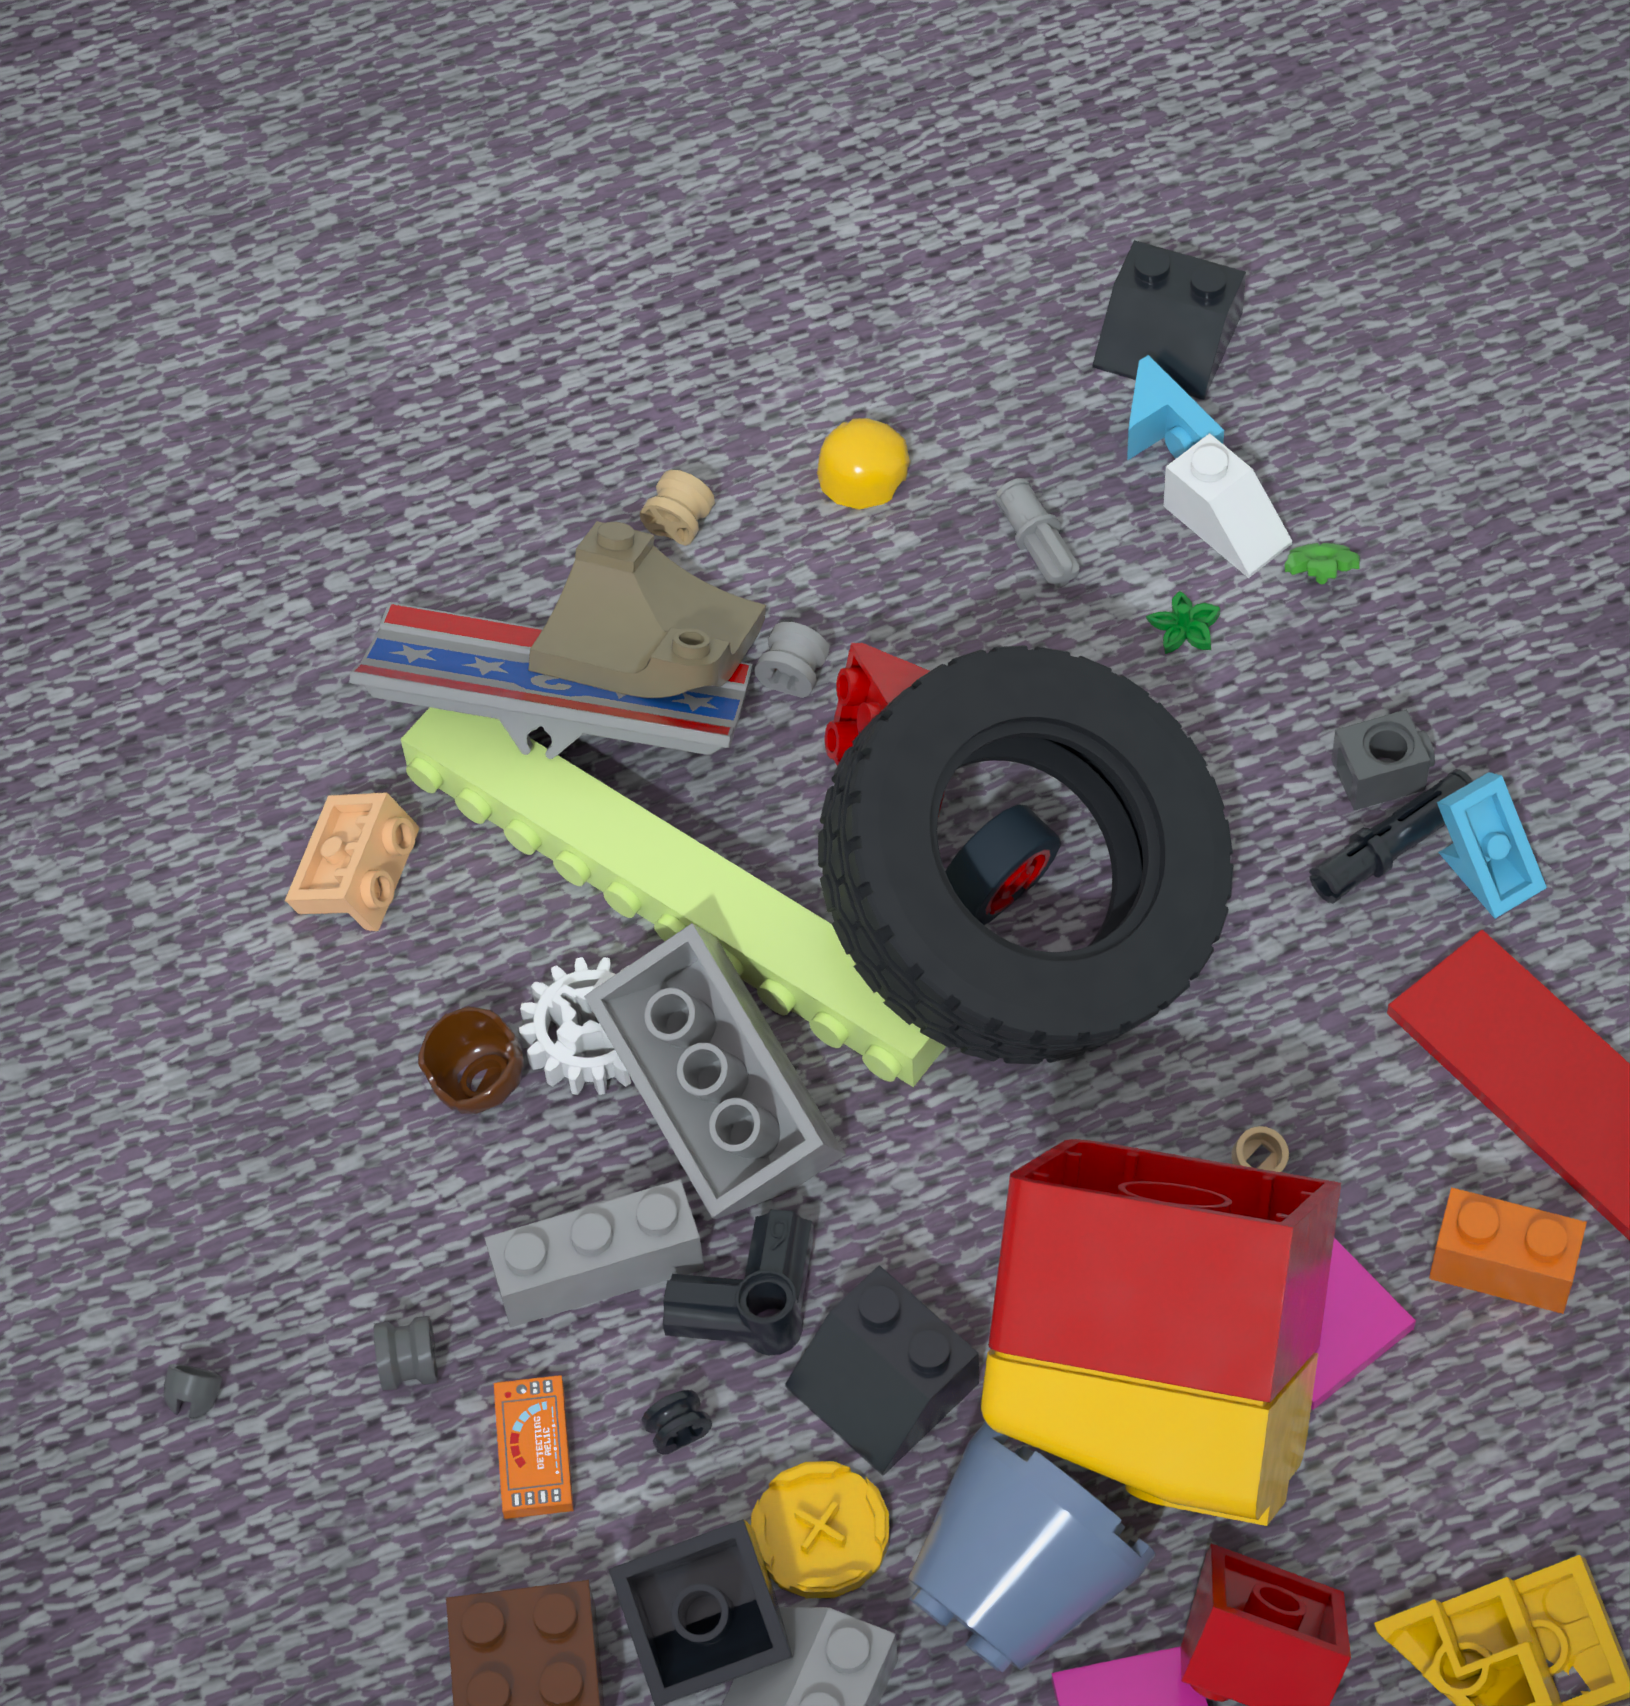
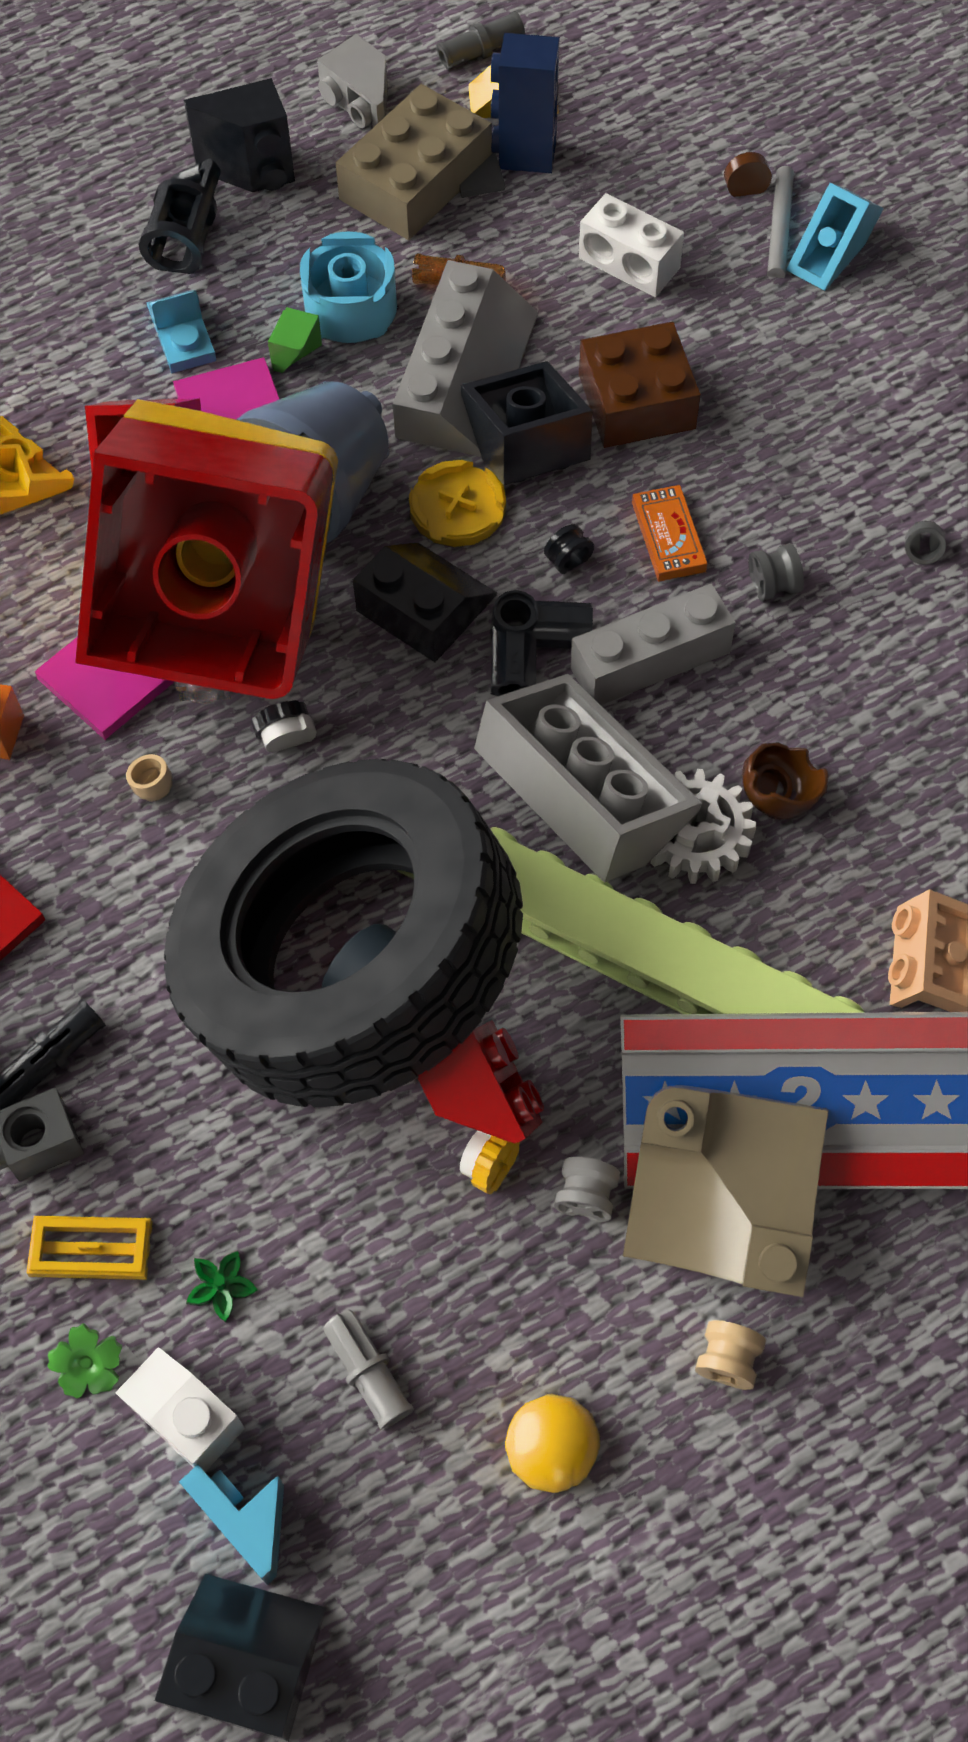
camera: 170 degrees right, 5 degrees up
(1317, 684) = (96, 1270): none -> yellow tile

